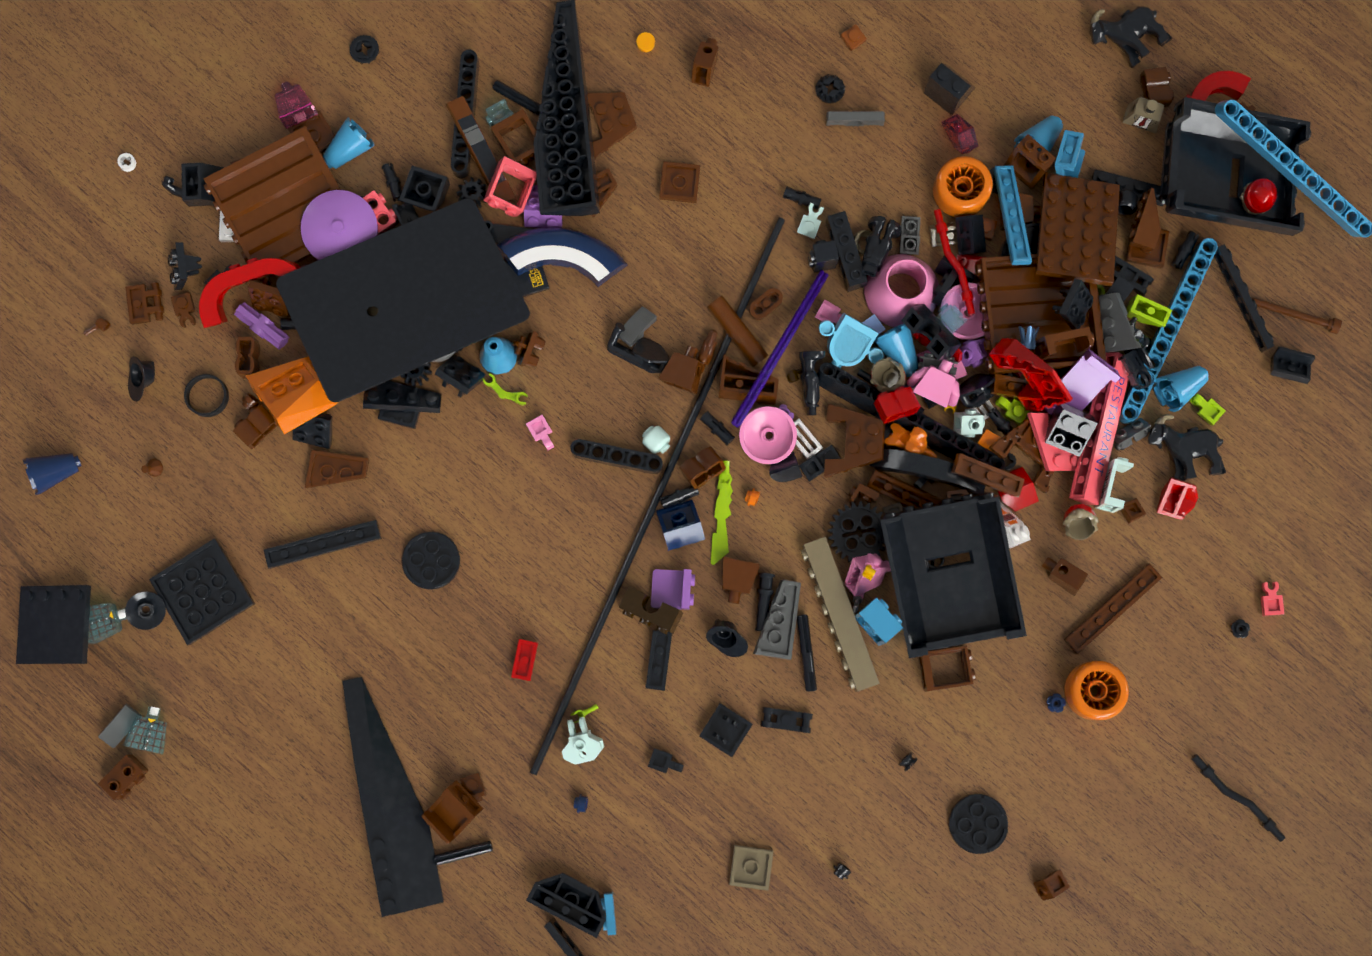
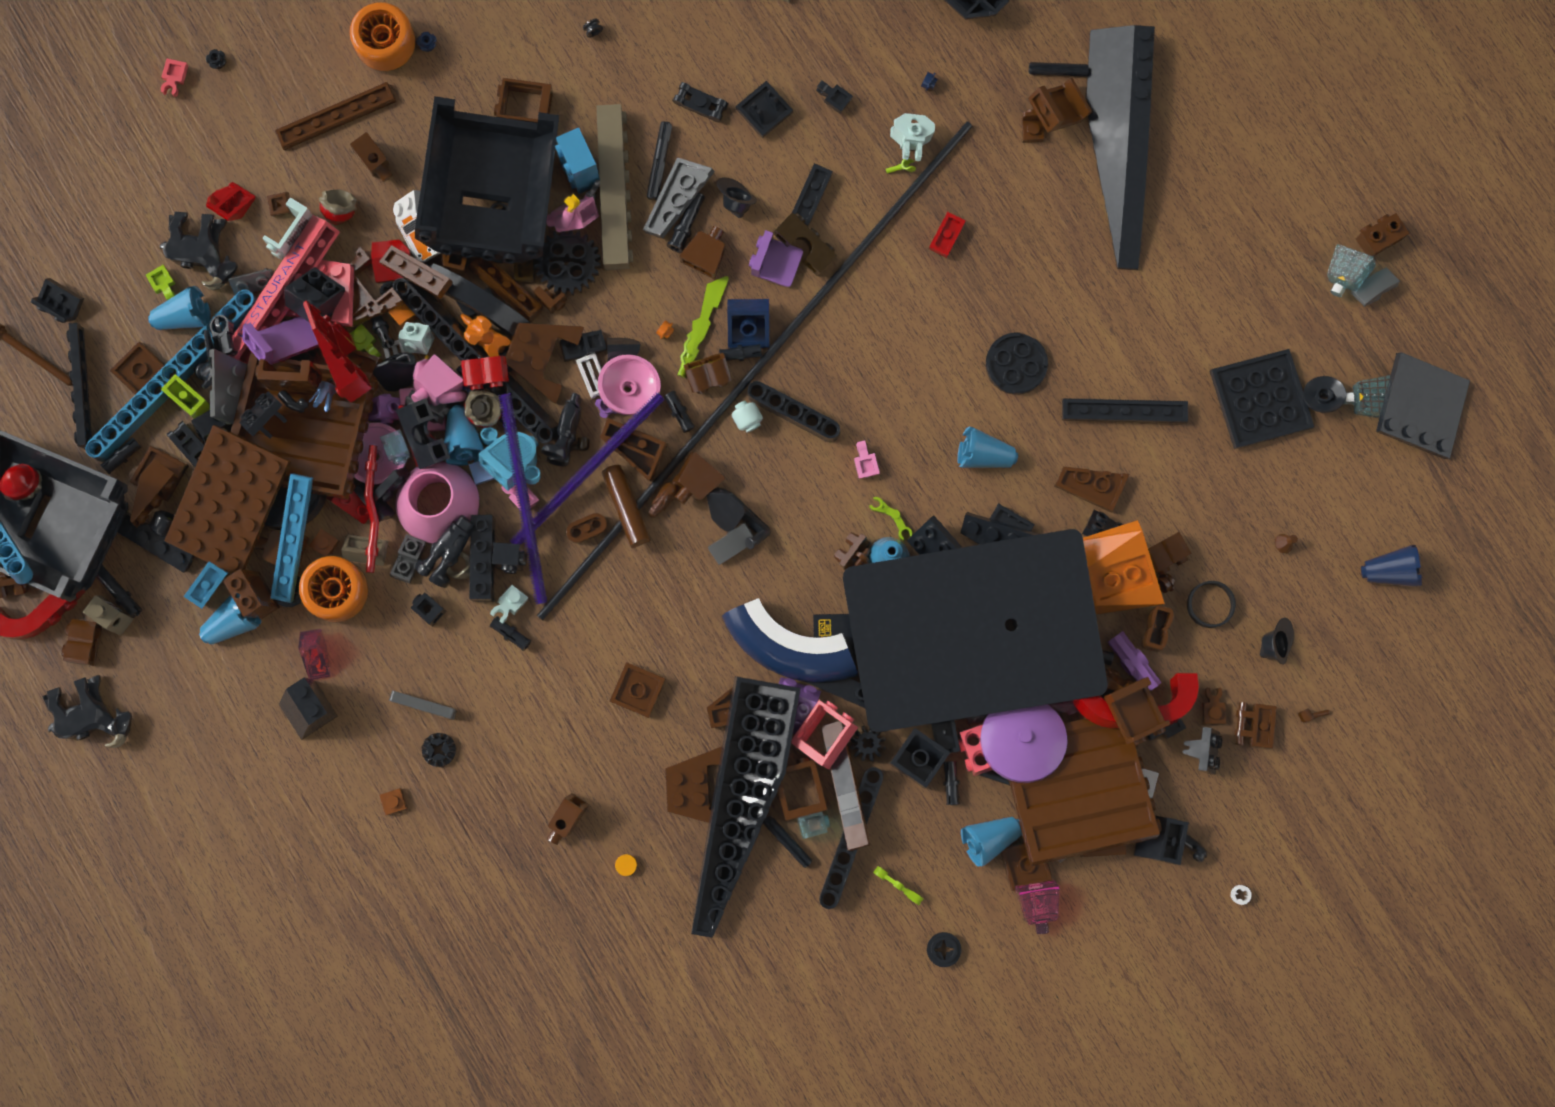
camera: 165 degrees left, 0 degrees up
(245, 270) = (1136, 712): none -> reddish brown panel
(403, 84) = (881, 873): none -> lime piece
(438, 468) = (985, 451): none -> dark azure cone
(828, 306) = (523, 498): none -> dark purple axle
(878, 191) = (419, 604): none -> black brick
(970, 234) = (343, 535): black hinge -> none
(1055, 324) = (289, 402): none -> black arm
(1141, 136) = (117, 591): none -> black pin
(1199, 329) = (137, 367): none -> reddish brown tile

